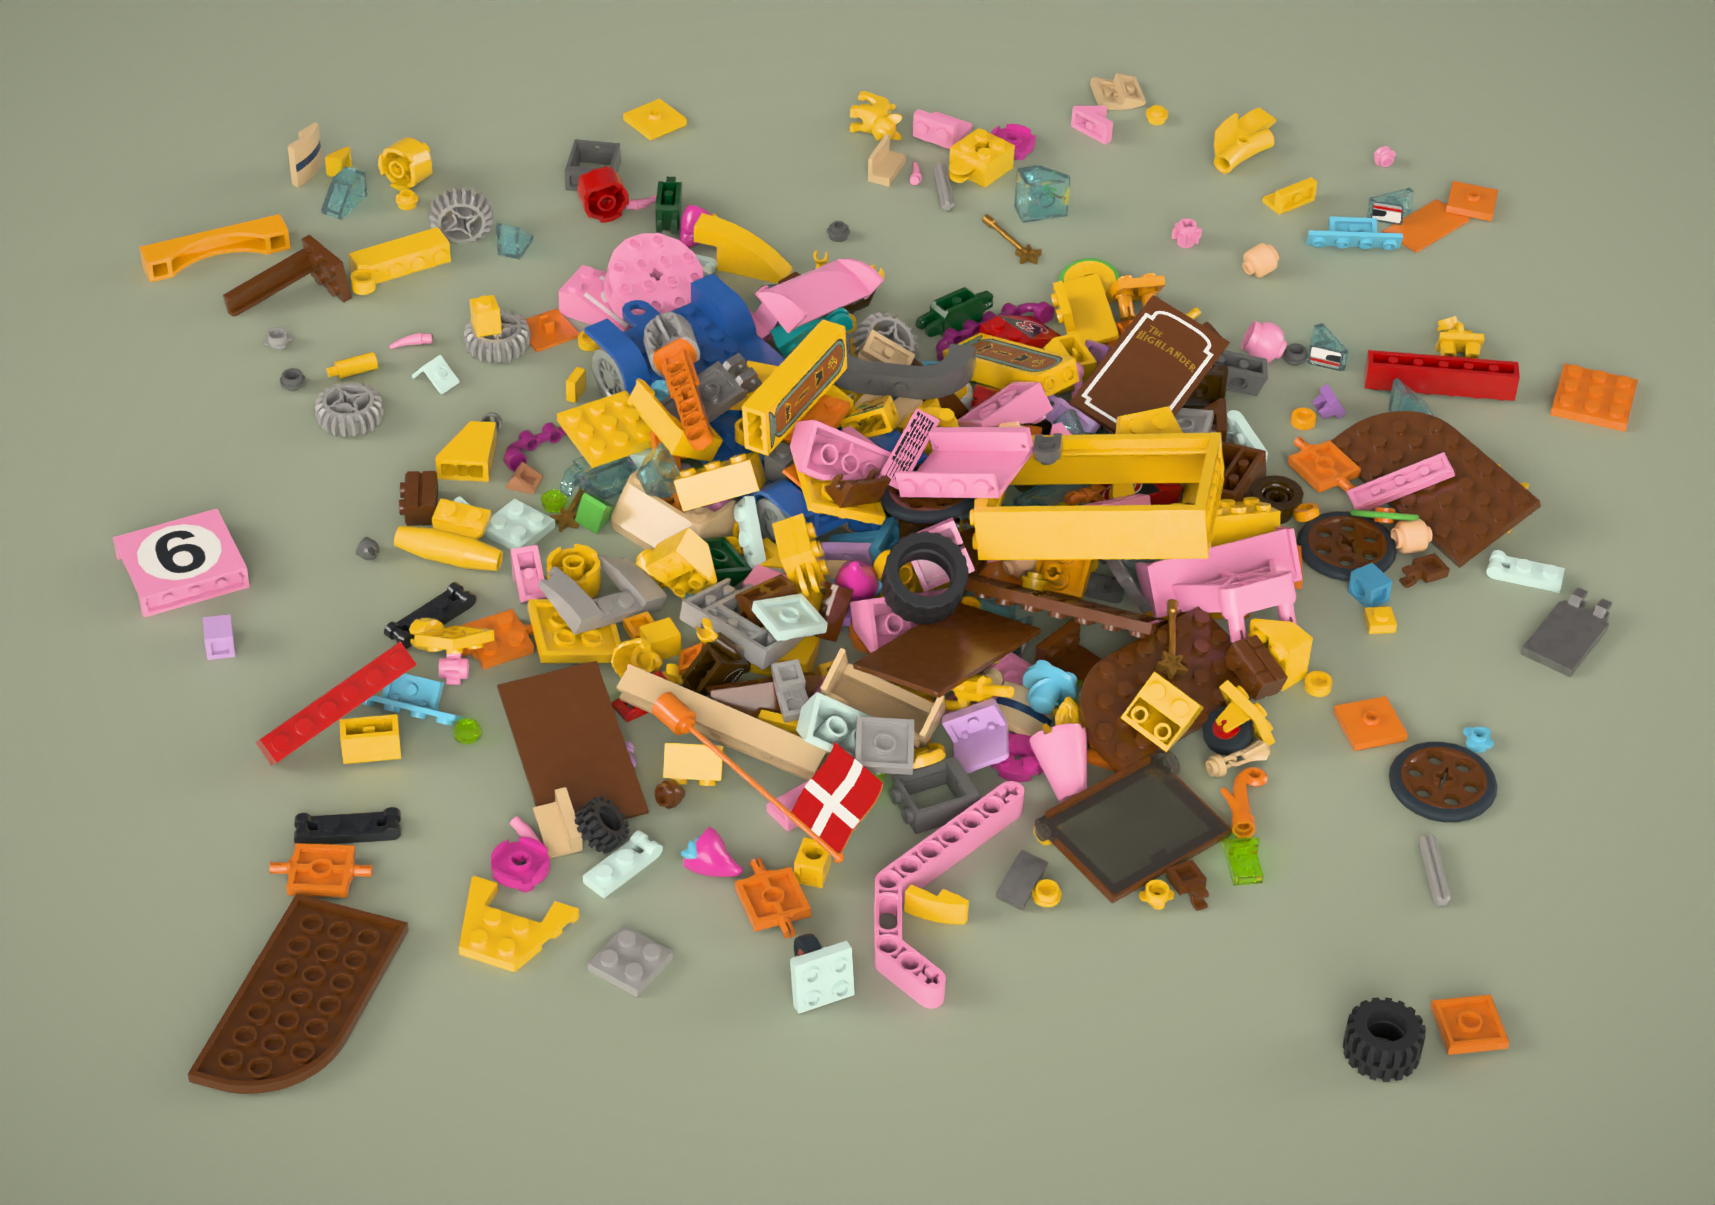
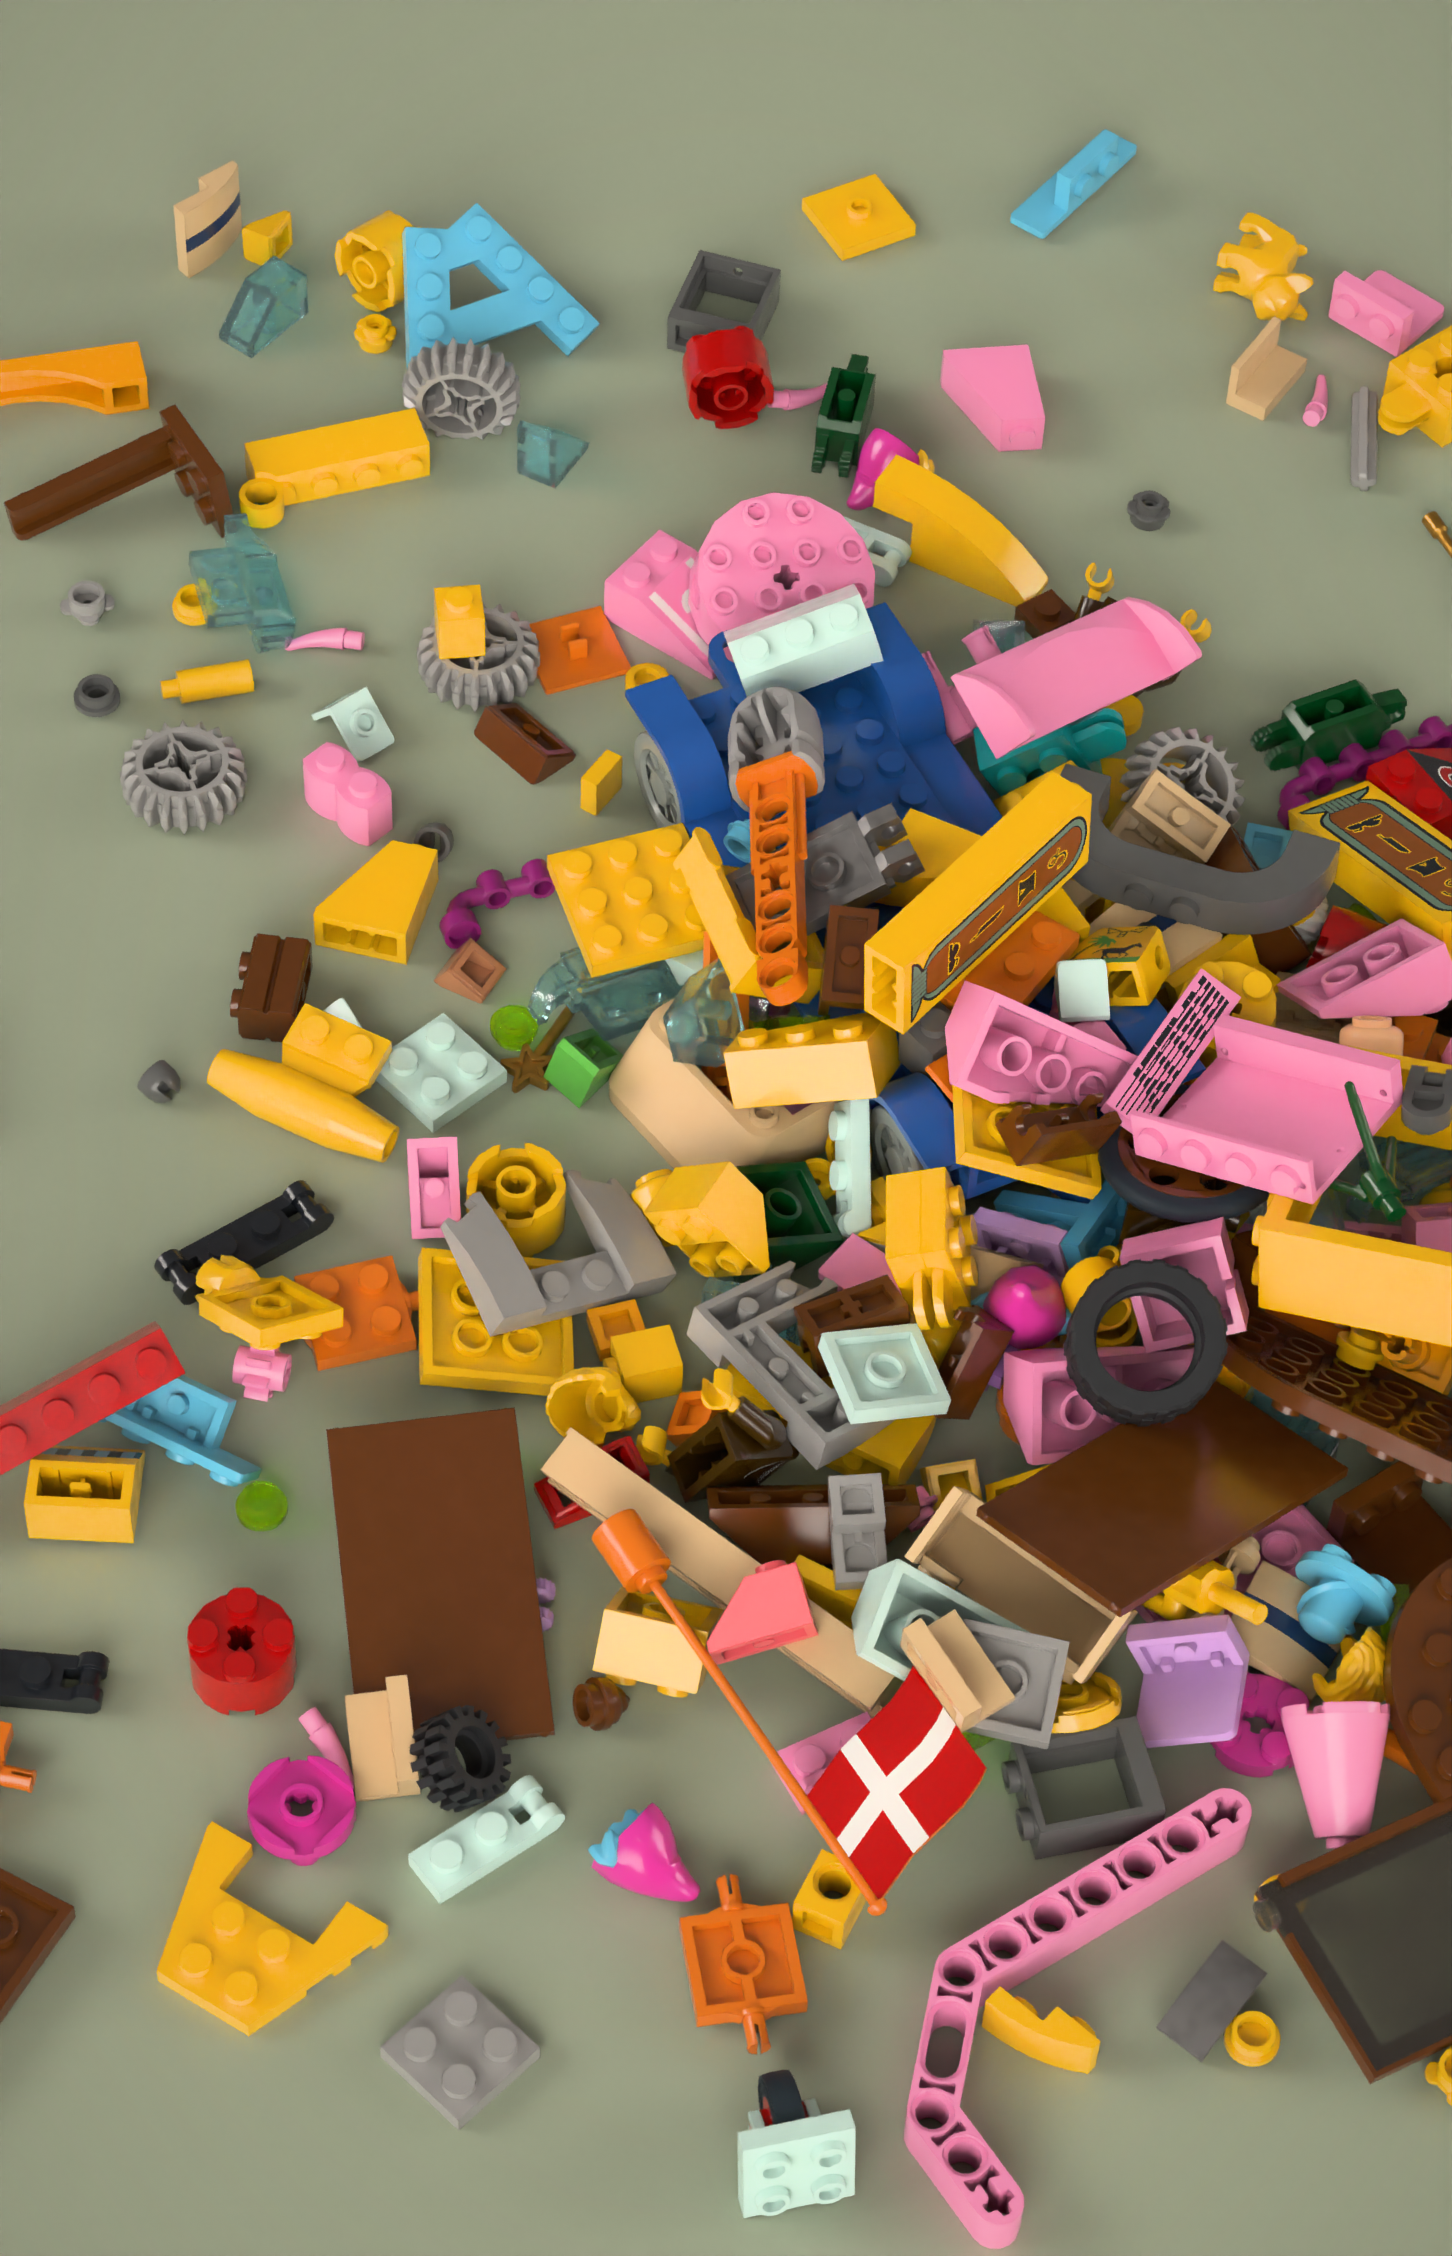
camera: 10 degrees right, 10 degrees up
(336, 332) = (187, 606): none -> yellow plate
(360, 319) = (243, 586): none -> clear light blue plate
(440, 405) = (347, 794): none -> bright pink brick
(472, 796) = (242, 1652): none -> red brick
(484, 167) = (526, 287): none -> medium azure plate
(528, 374) = (522, 742): none -> reddish brown slope
(678, 294) = (805, 643): none -> light aqua slope
(729, 427) = (844, 957): none -> reddish brown panel
(747, 188) = (997, 394): none -> bright pink slope
(751, 733) = (764, 1614): none -> coral slope
(767, 89) = (1073, 184): none -> medium azure bracket
(857, 424) = (1082, 990): none -> light aqua slope
(857, 739) = (956, 1669): none -> tan panel
(1030, 483) = (1379, 1182): none -> dark green plant

